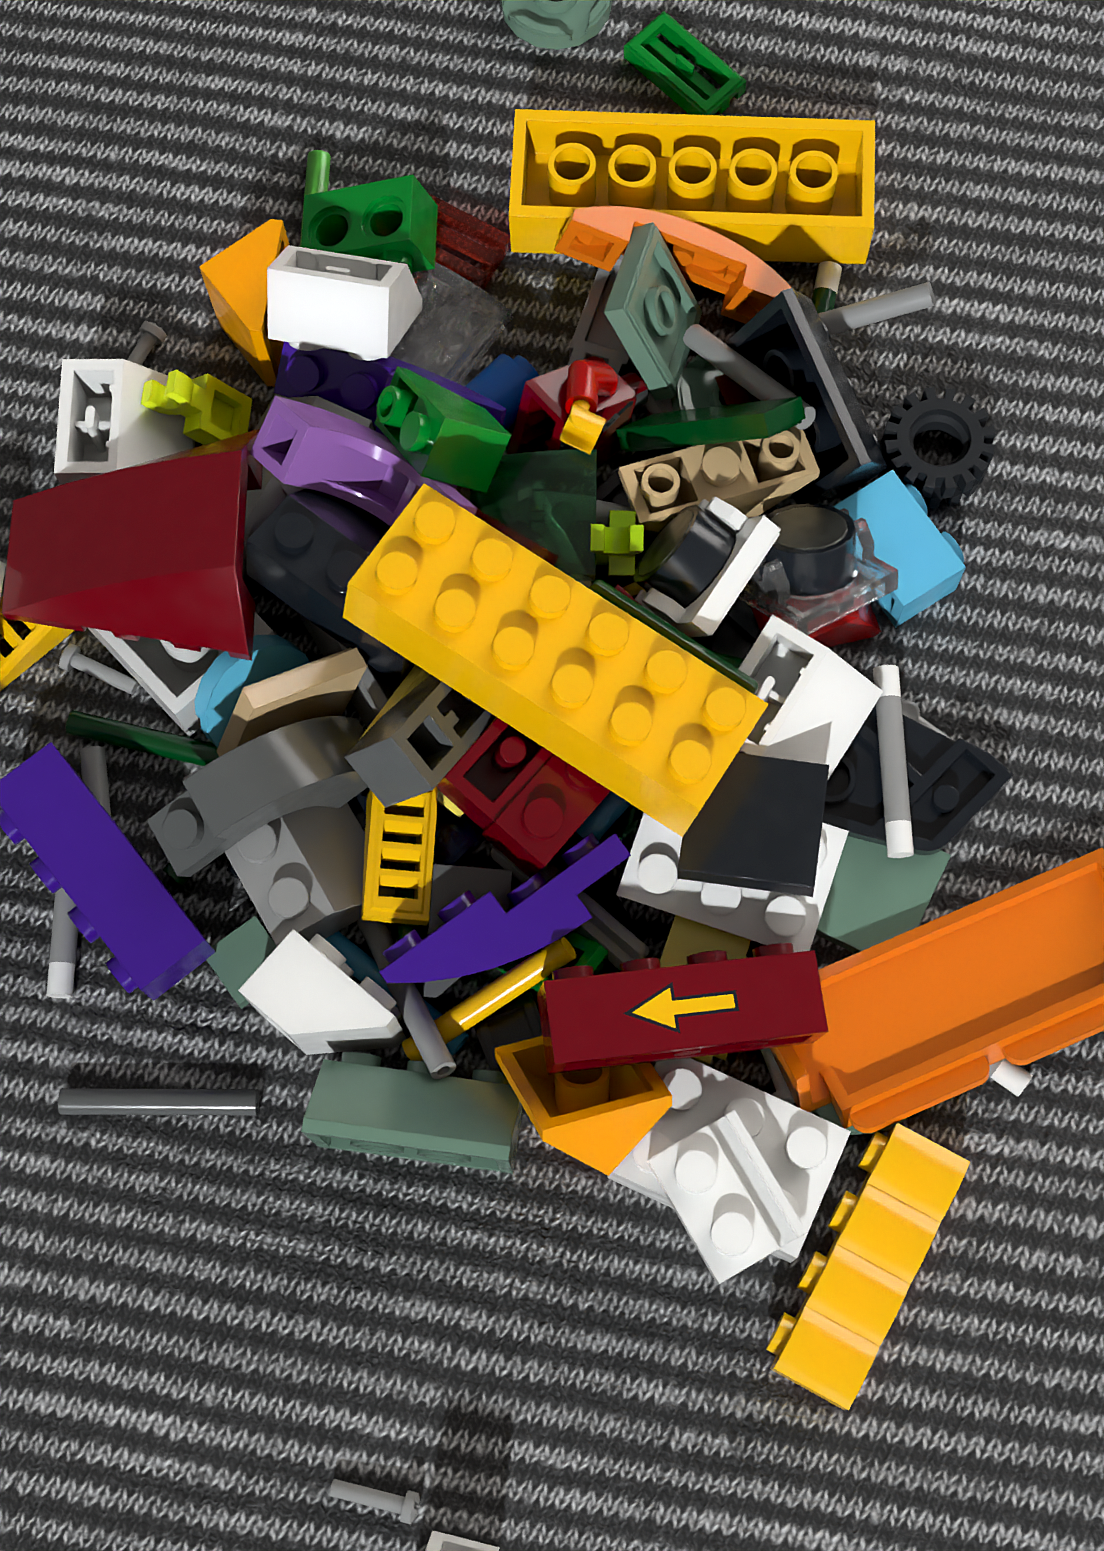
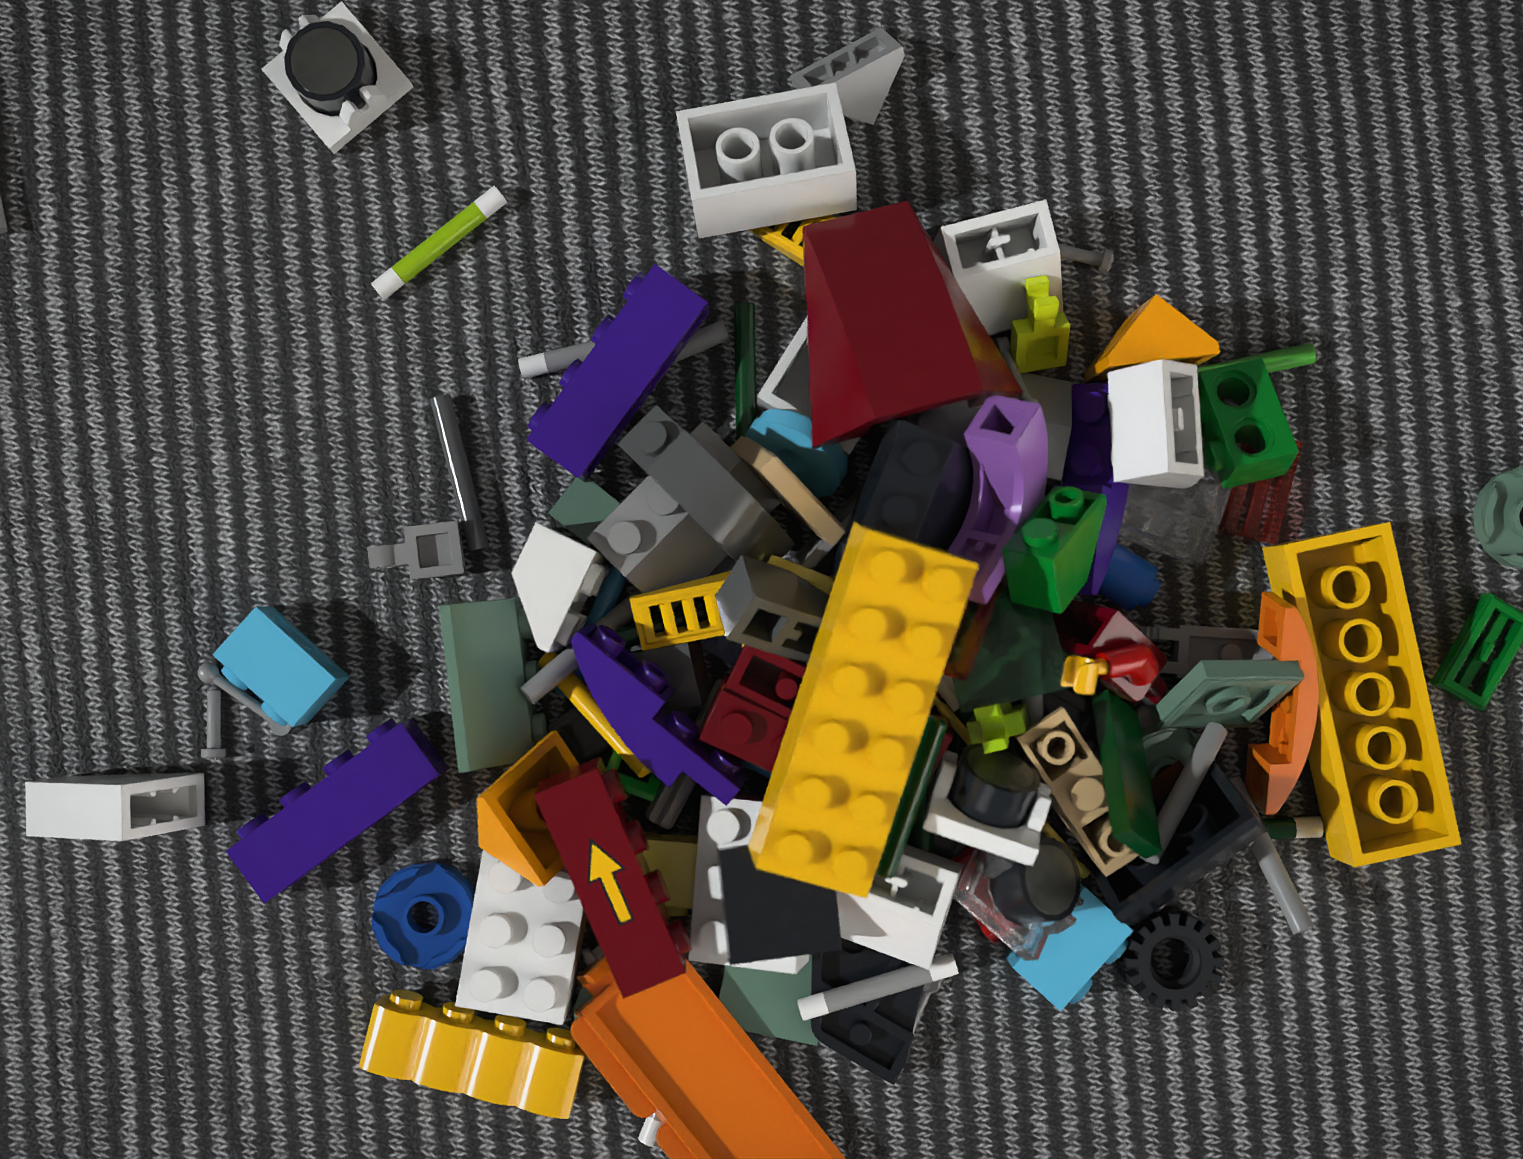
camera: 70 degrees right, 15 degrees up
(71, 658) = (794, 309): light grey piece -> none
(238, 1158) = (429, 551): none -> light grey plate
(308, 1485) = (209, 673): none -> light grey hinge
(324, 1383) = (279, 667): none -> medium azure brick
(521, 1357) = (336, 809): none -> dark purple brick
(658, 1321) = (393, 918): none -> blue tile
(726, 1197) = (480, 945): white plate -> none

